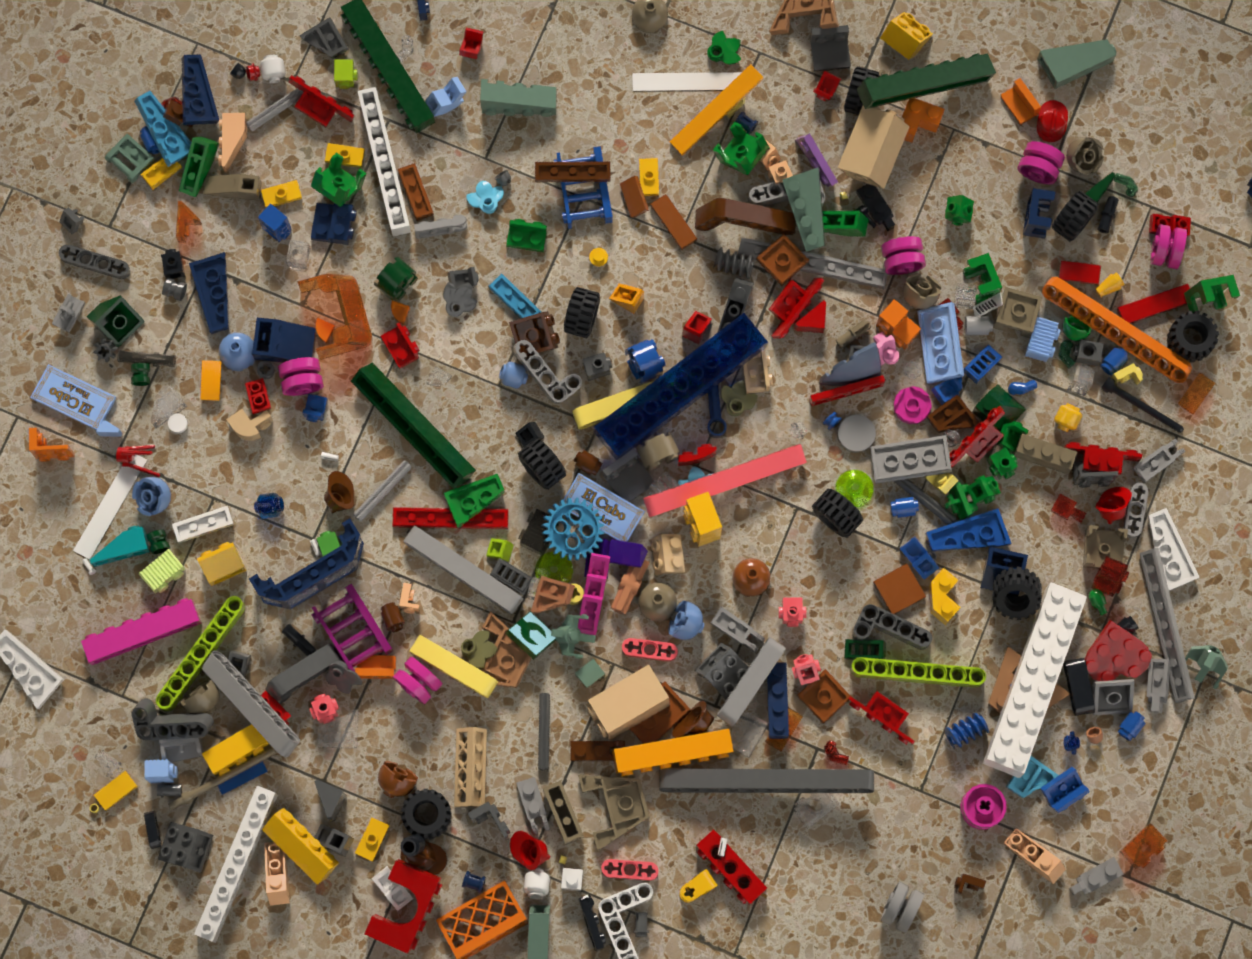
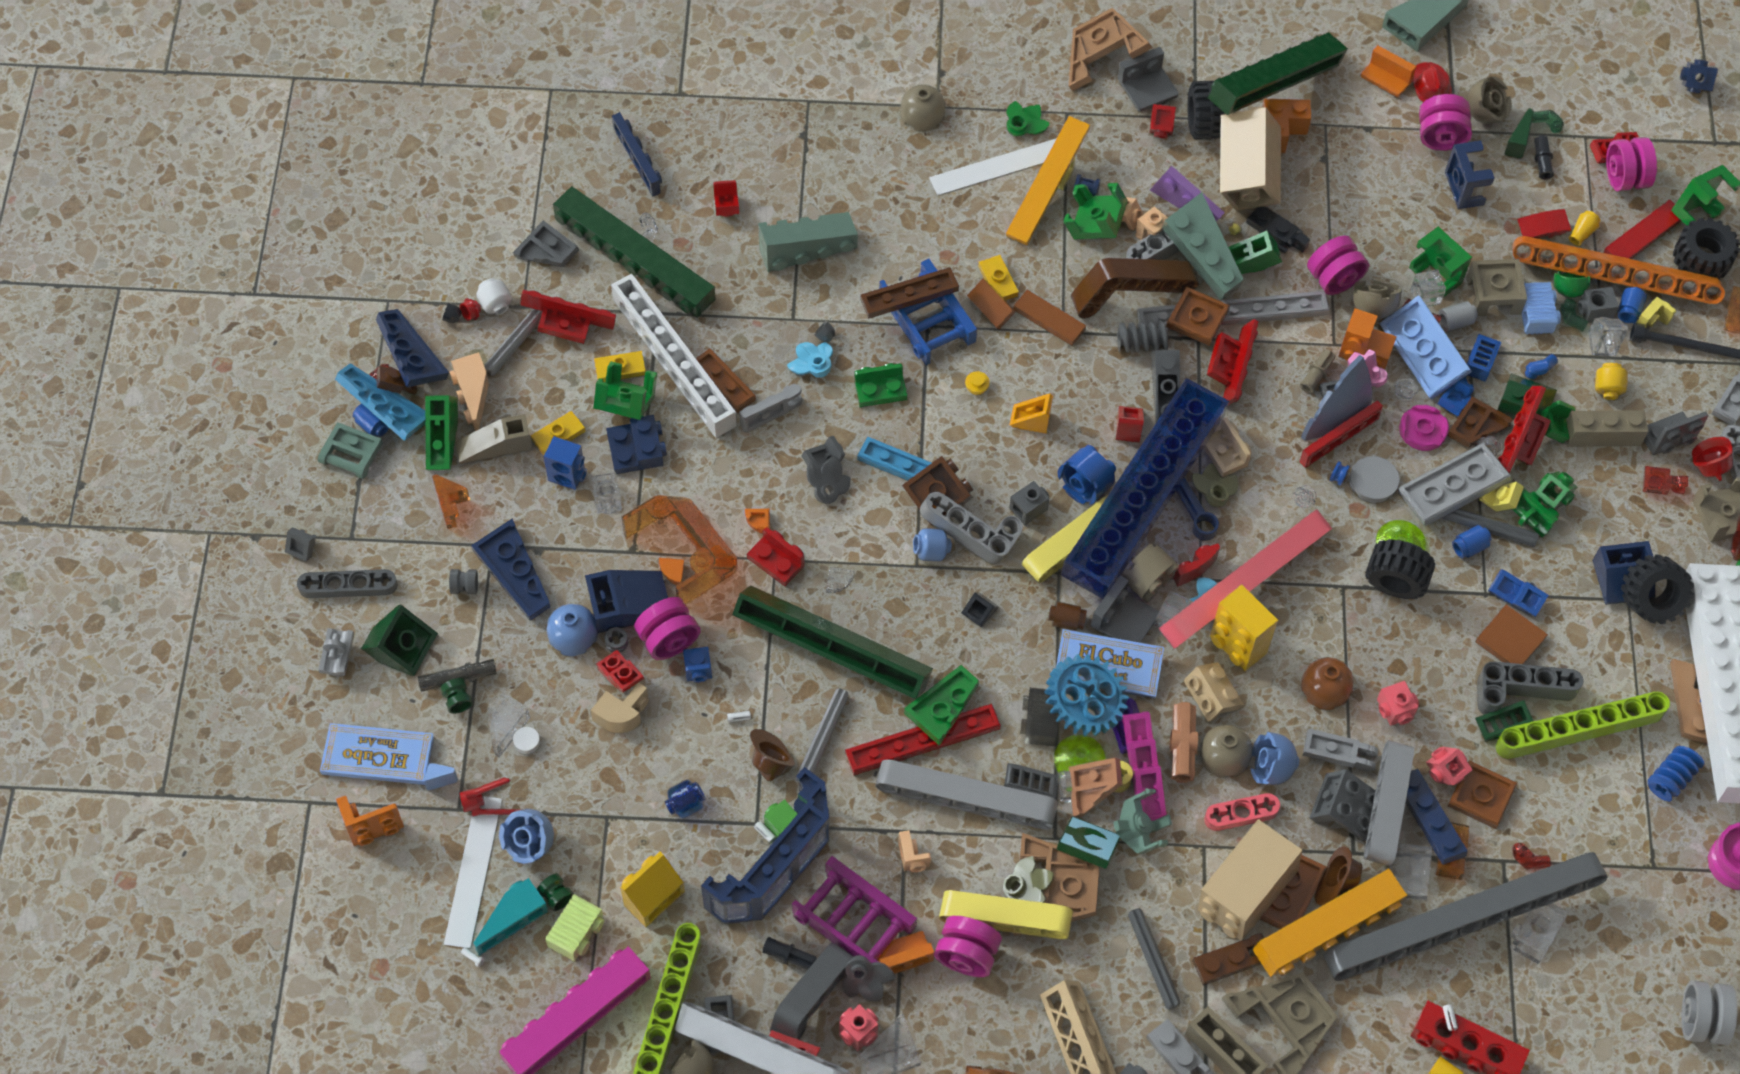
camera: 20 degrees left, 15 degrees down
(103, 354) = (397, 688): dark grey gear -> none
(159, 173) = (395, 454): yellow plate -> none
(176, 269) = (450, 553): black brick -> none
(203, 524) = (606, 851): white plate -> none
(210, 380) = (551, 673): light orange slope -> none
(345, 73) = (585, 276): lime brick -> none
(392, 617) = (900, 882): reddish brown brick -> none
(396, 279) = (741, 479): dark green brick -> none
(446, 99) = (723, 264): light blue brick -> none
(500, 549) = (999, 754): lime slope -> none
(542, 464) = (1015, 631): black tyre -> none
(581, 312) = (988, 443): black tyre -> none
(590, 673) = (1183, 863): sand green panel -> none
(627, 553) = (1166, 701): dark purple slope -> none
(814, 320) = (1266, 371): red slope -> none
(886, 712) = (1567, 785): red bracket -> none
(906, 35) = (1227, 43): yellow slope -> none
(940, 604) = (1571, 636): yellow brick -> none
(959, 210) = (1376, 200): green brick -> none
(974, 532) = (1566, 543): blue wing -> none
(988, 305) = (1459, 289): white sticker -> none
(1002, 464) = (1563, 454): green brick -> none
(1075, 216) = (1512, 163): black tyre -> none
(1103, 460) = (1677, 408): red bracket -> none

